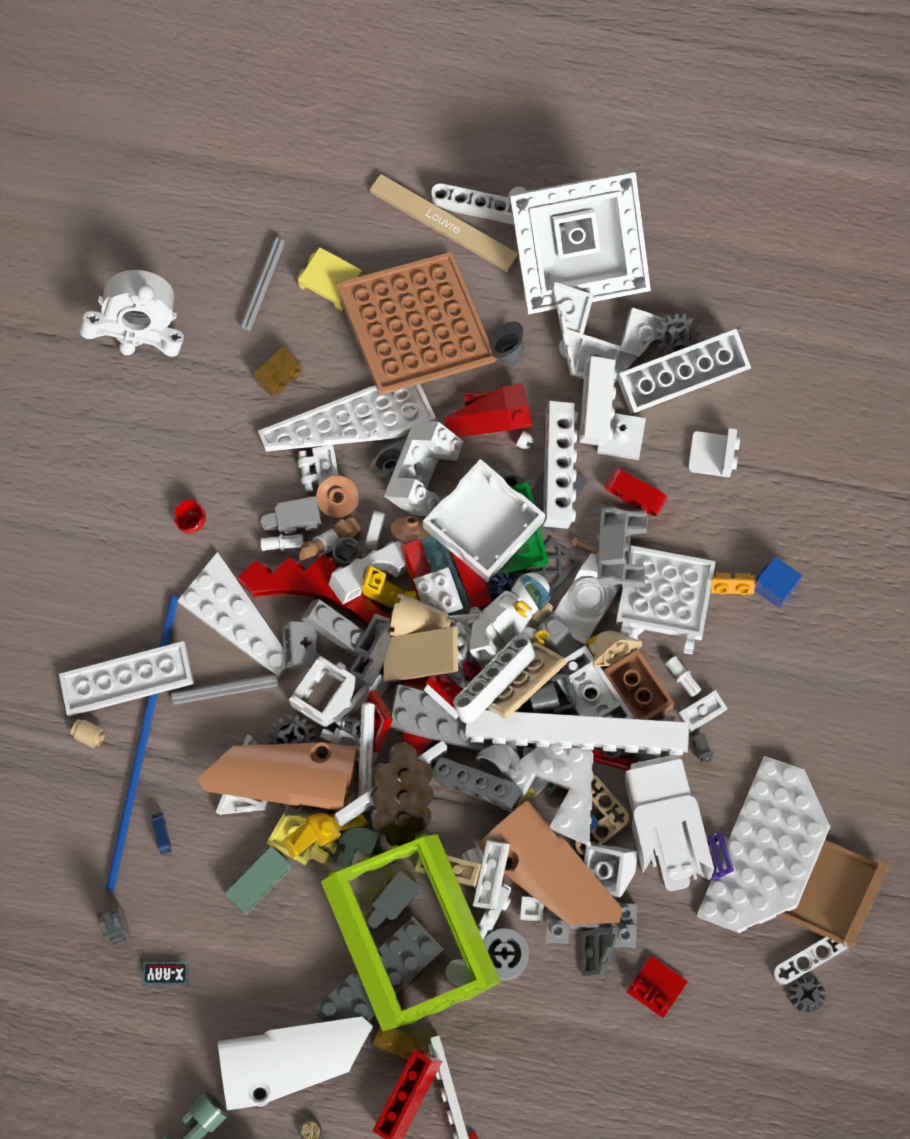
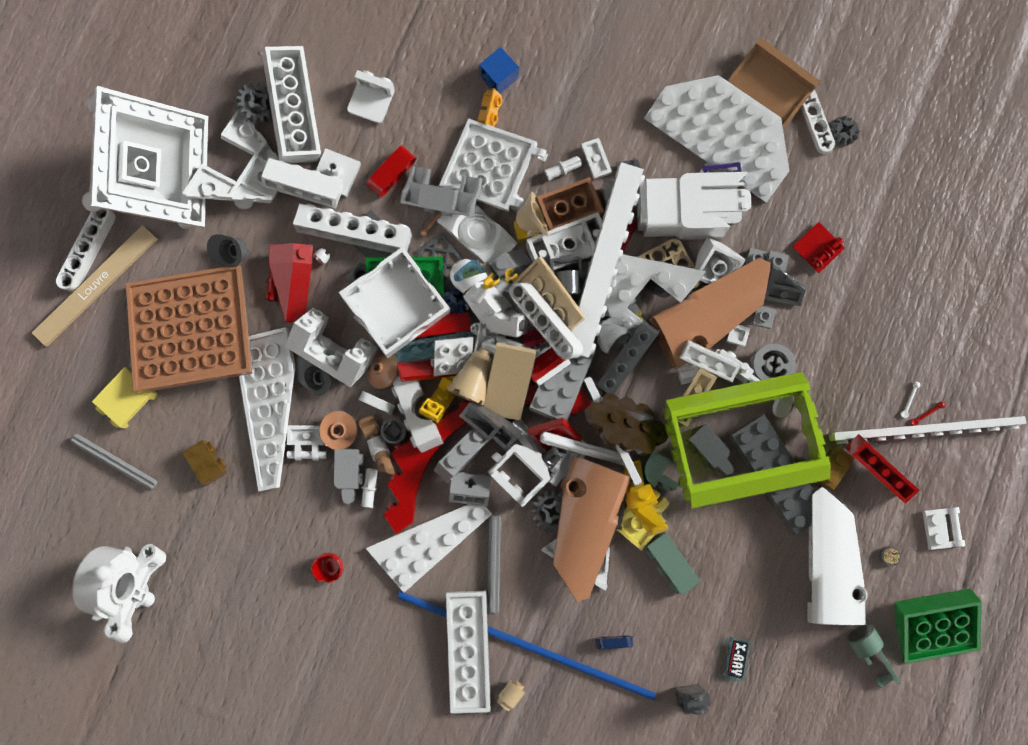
camera: 90 degrees left, 10 degrees up
(516, 1131) = (904, 414): none -> white hinge

